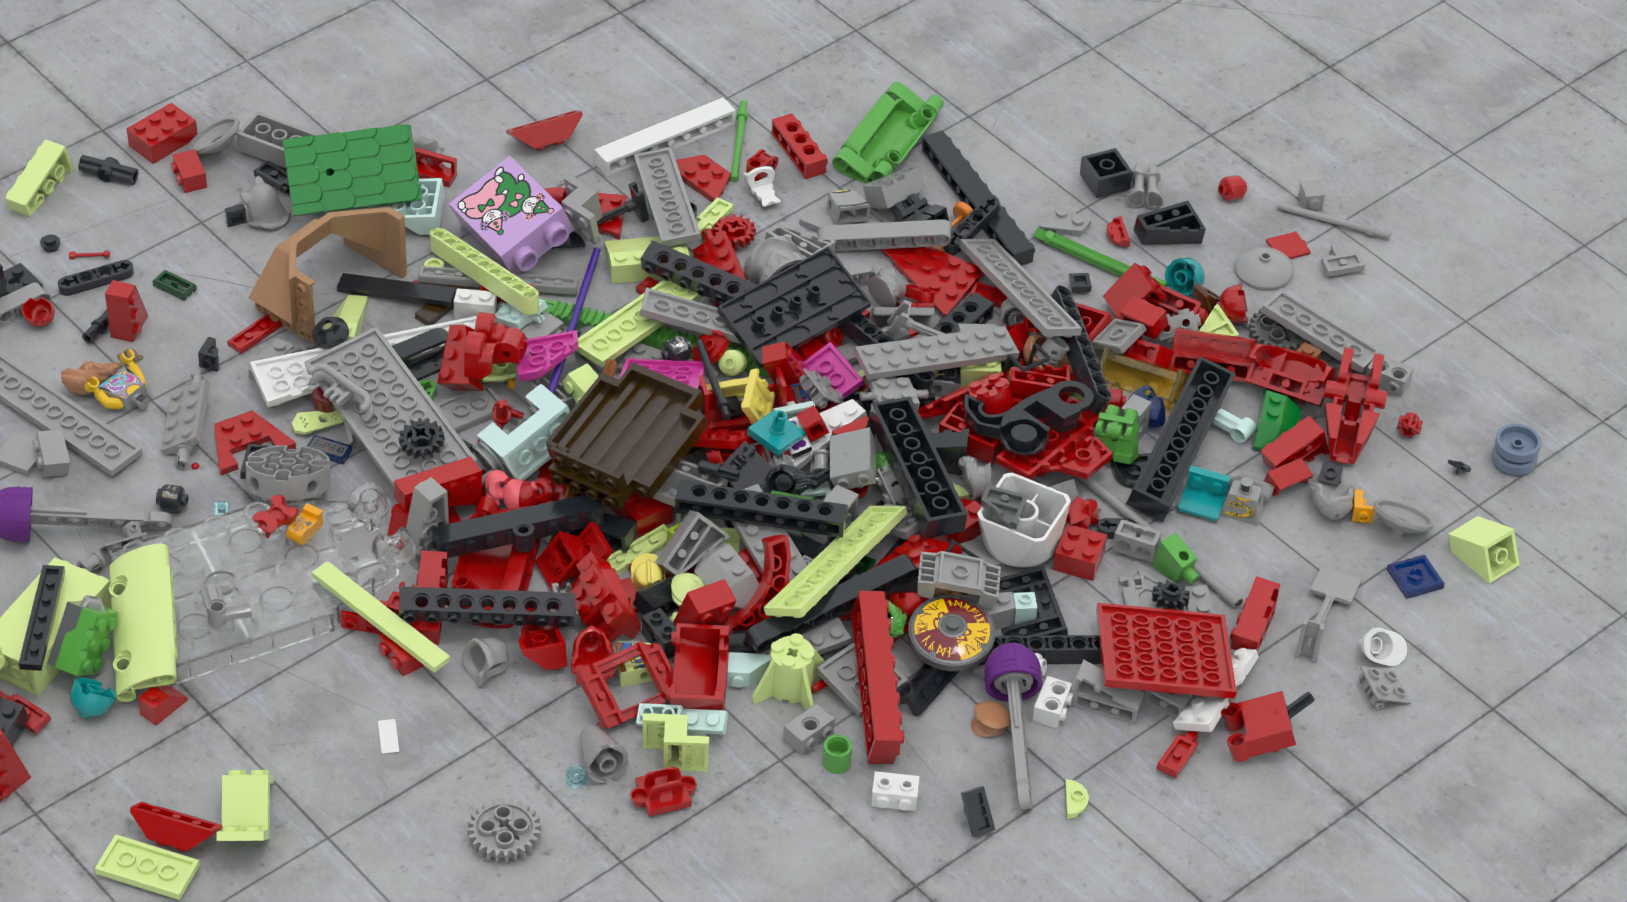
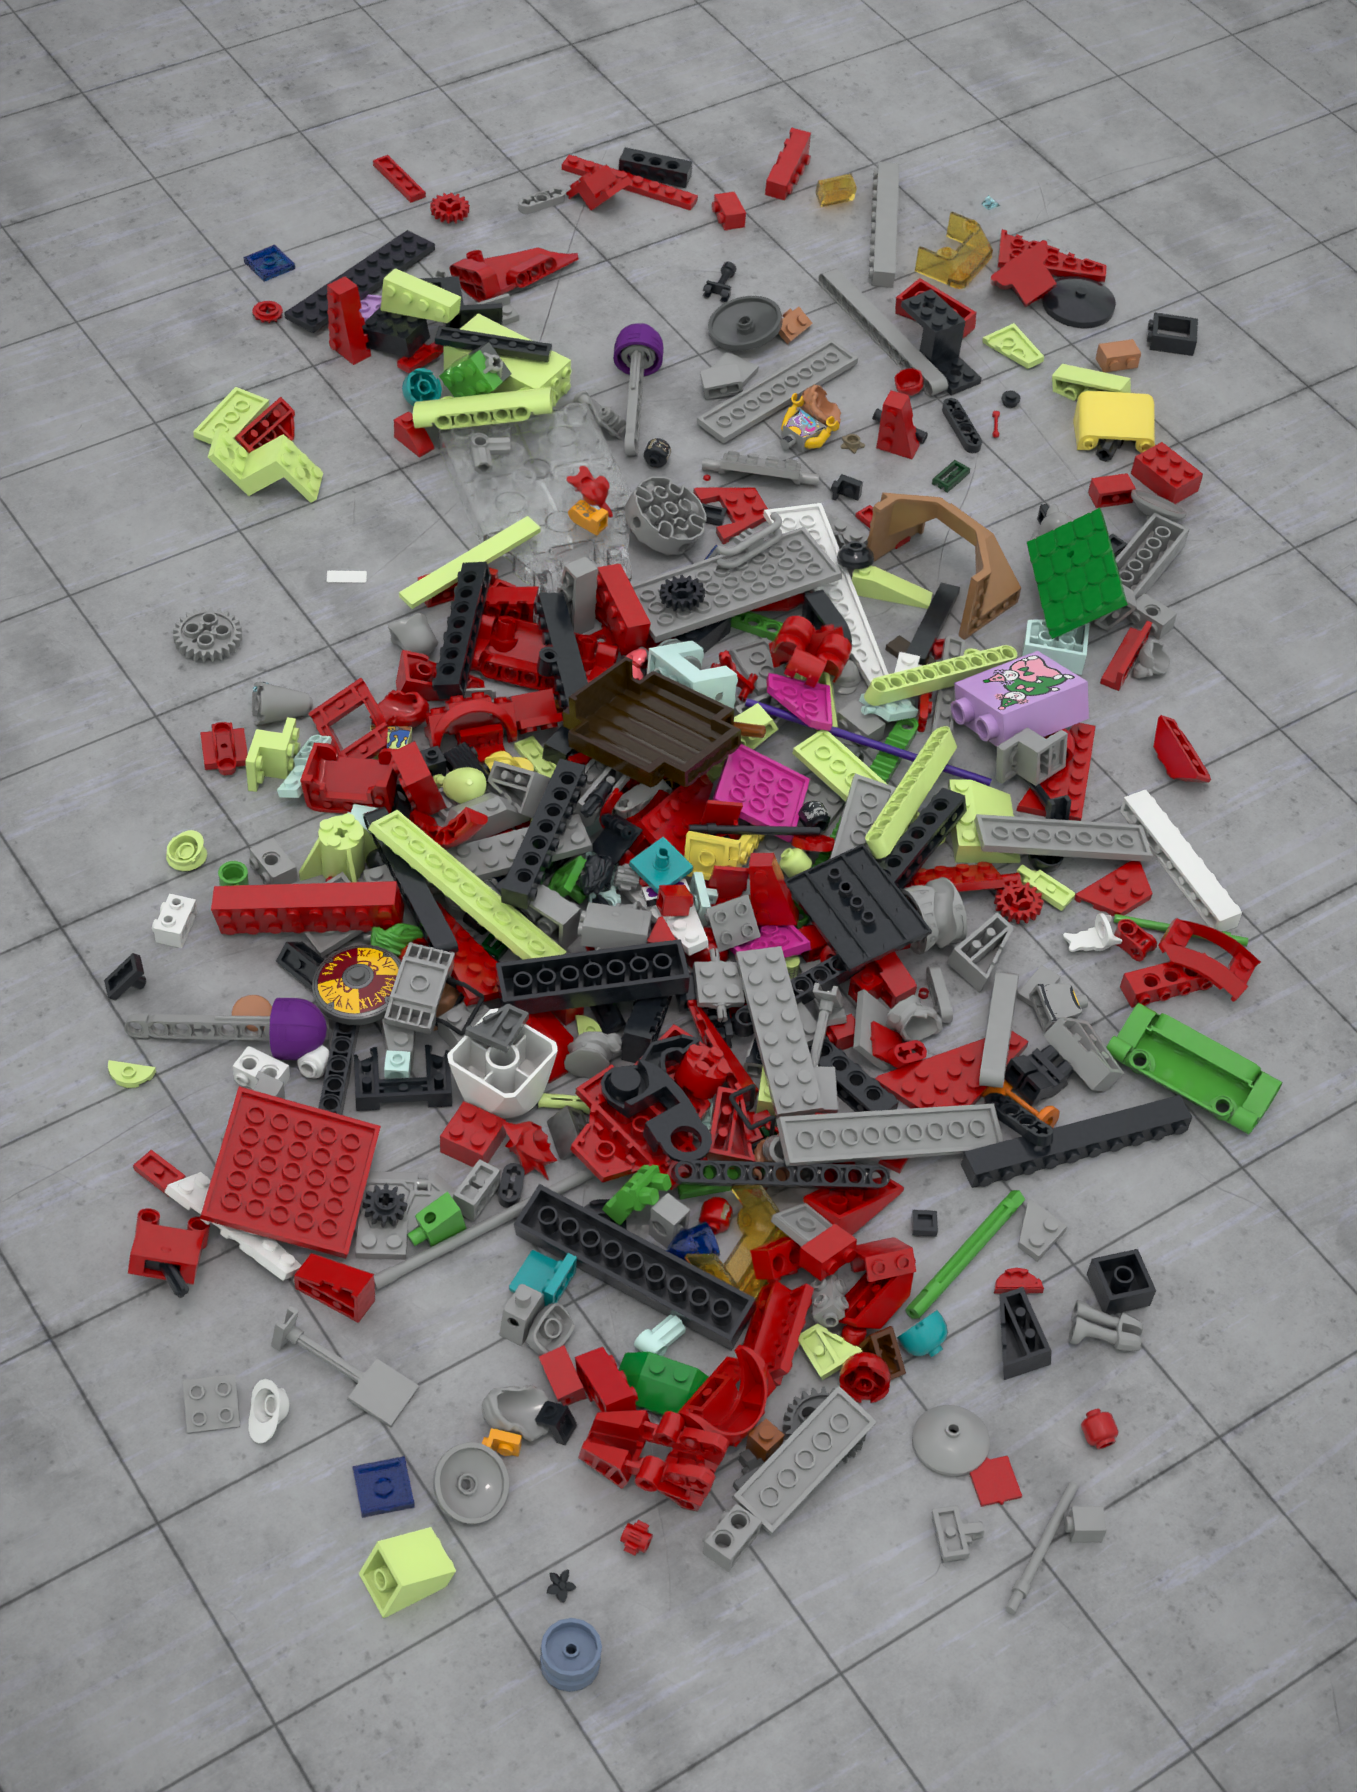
camera: 95 degrees right, 5 degrees up
(95, 165) = (1114, 417): none -> light yellow windscreen
(637, 274) = (910, 792): none -> yellowish green beam
(795, 108) = (1230, 978): none -> red wedge
(804, 799) = (186, 851): none -> yellowish green piece

